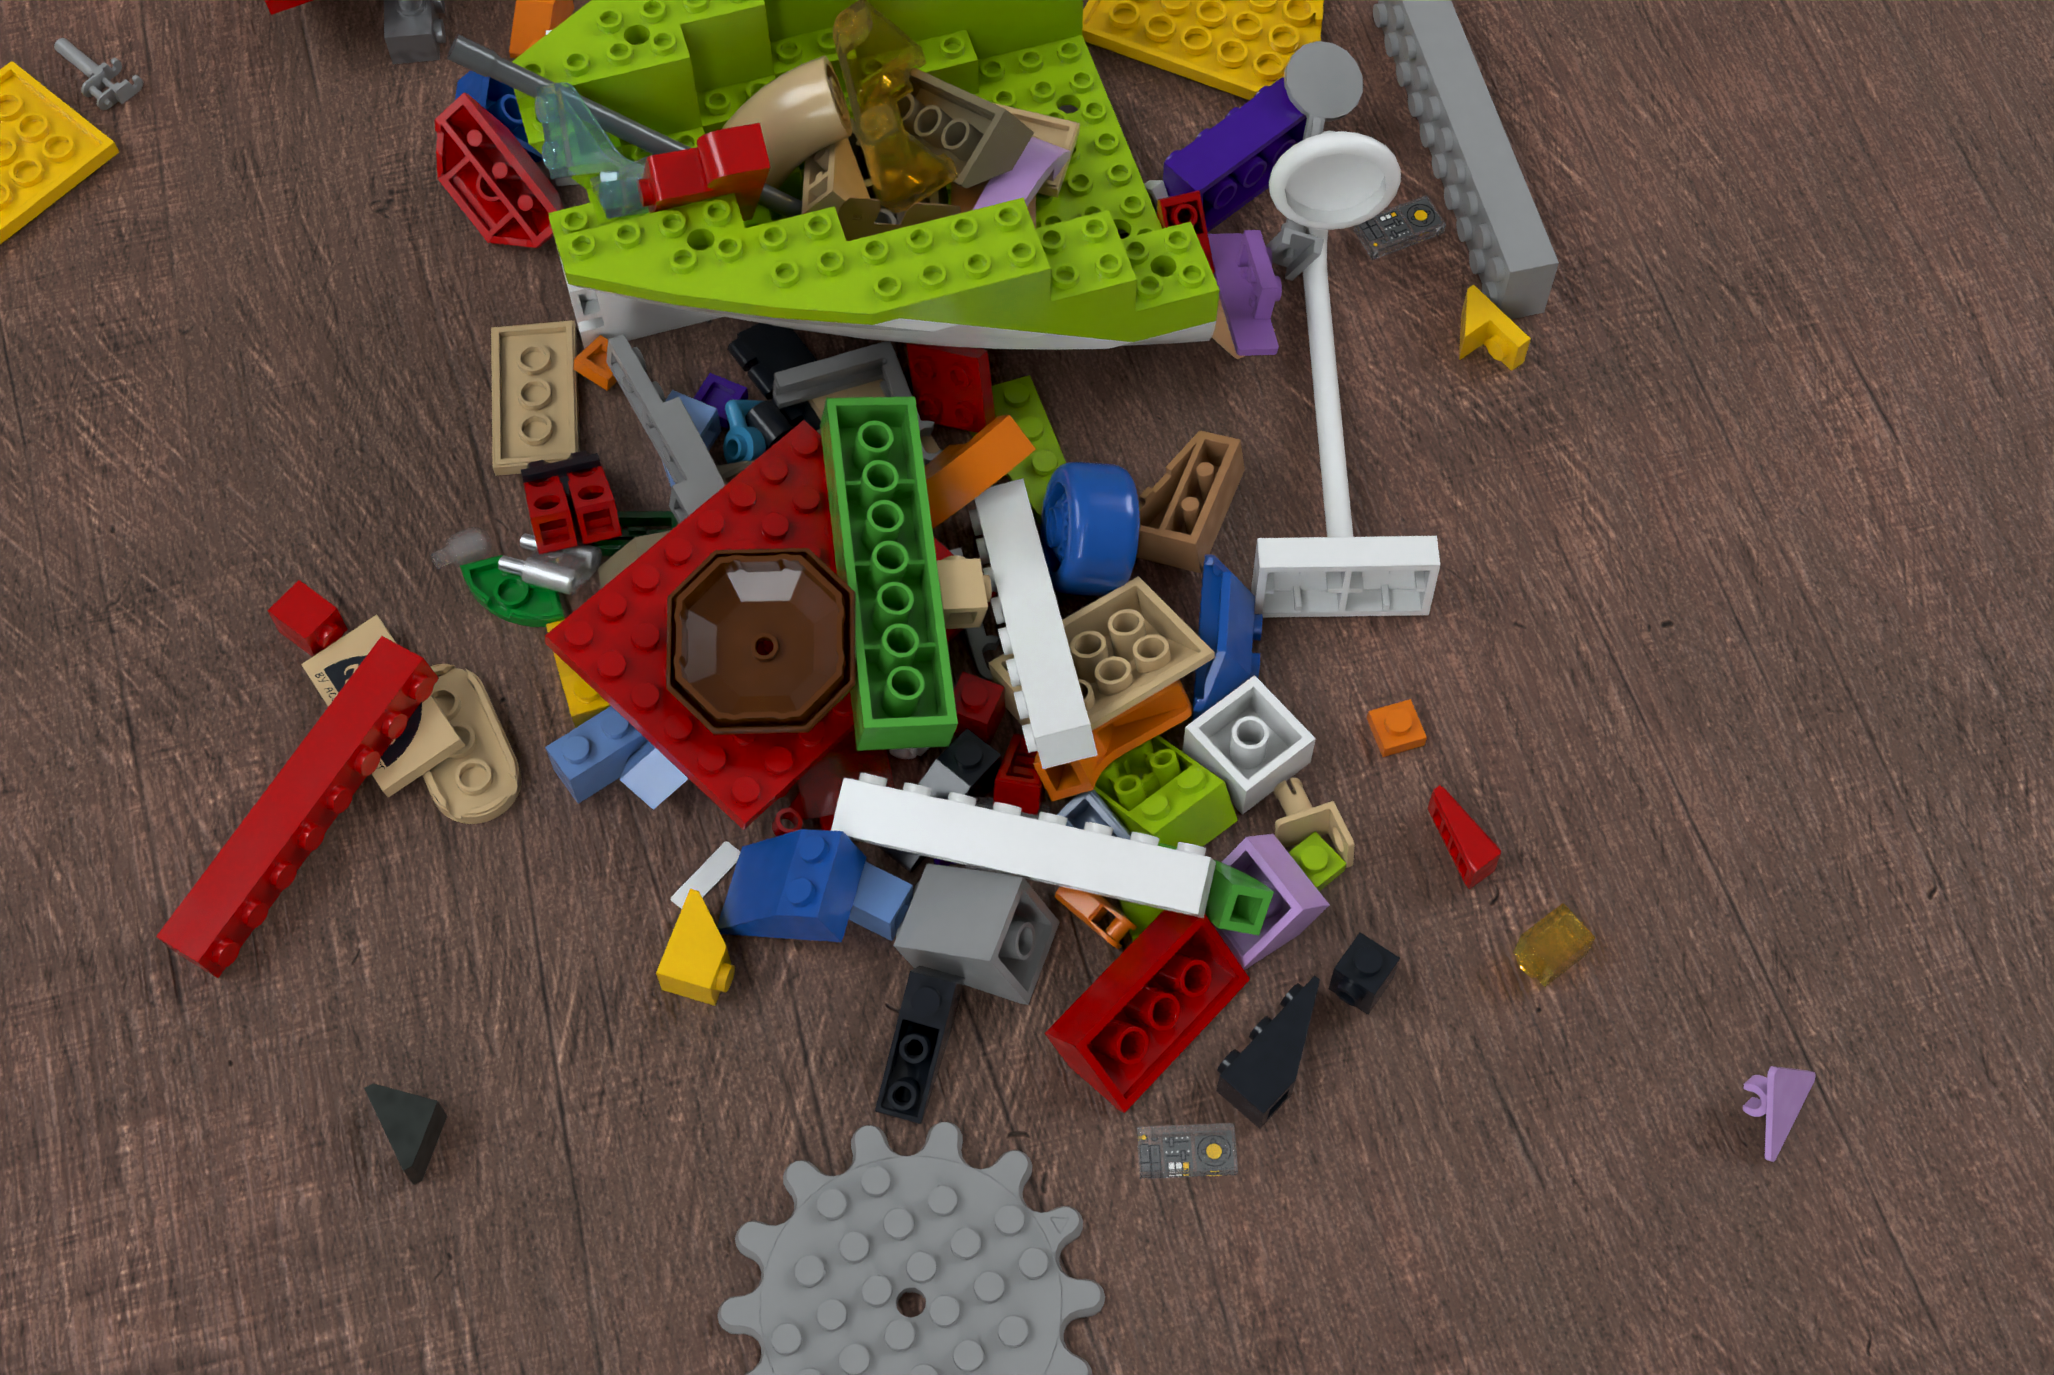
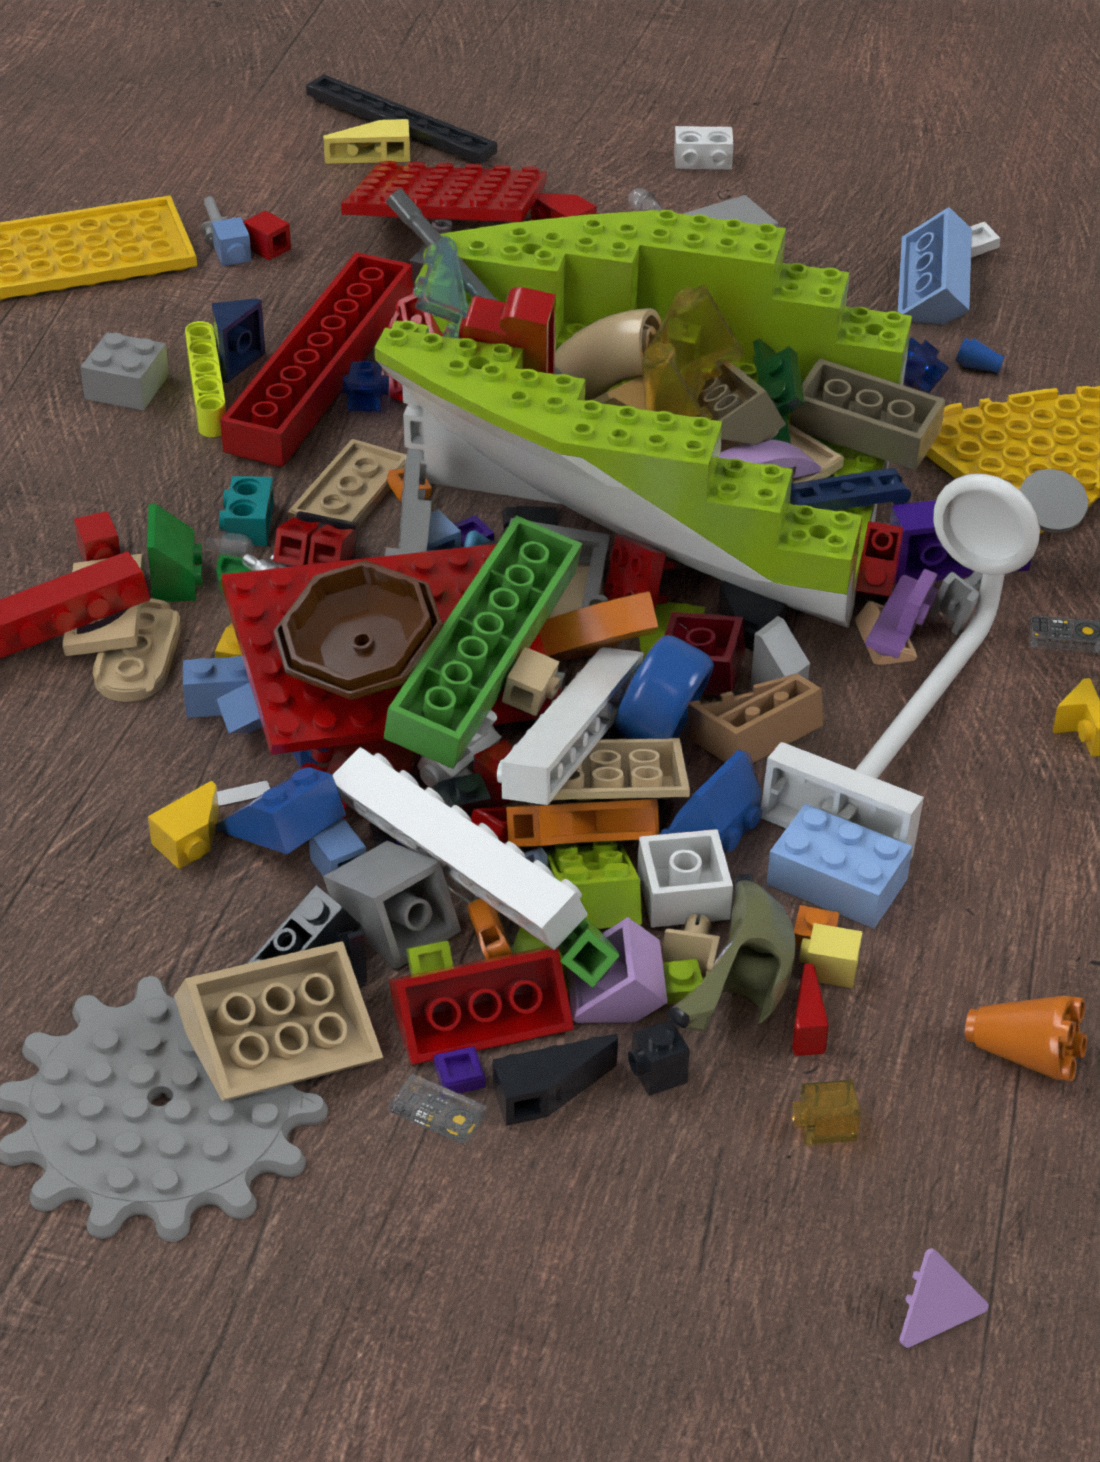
camera: 30 degrees right, 20 degrees down
(139, 98) = (231, 241): none -> medium blue brick
(157, 358) = (125, 371): none -> light grey brick
(175, 69) = (268, 235): none -> red brick
(260, 248) = (238, 335): none -> dark blue slope
(261, 322) = (205, 377): none -> neon yellow beam
(377, 234) = (310, 363): none -> red brick
(419, 604) = (172, 557): none -> green slope
(453, 489) = (248, 508): none -> teal brick
(460, 247) = (365, 386): none -> clear blue brick
(970, 60) = (781, 379): none -> dark green bracket
(980, 1155) = (278, 1021): none -> tan slope
(987, 1026) = (355, 948): none -> black tile
(1065, 983) = (429, 957): none -> lime plate
(1074, 55) = (868, 414): none -> dark tan brick
(1074, 430) = (719, 638): none -> dark red slope
(1087, 374) = (753, 607): none -> black slope
(1111, 169) = (851, 490): none -> dark blue plate
(1164, 420) = (777, 654): none -> light grey slope
(1176, 1093) = (460, 1070): none -> dark purple tile
(1379, 644) = (839, 865): none -> light blue brick
(1382, 810) = (752, 963): none -> olive piece
(1439, 757) = (833, 954): none -> light yellow brick
(1680, 752) = (1032, 1033): none -> orange cone

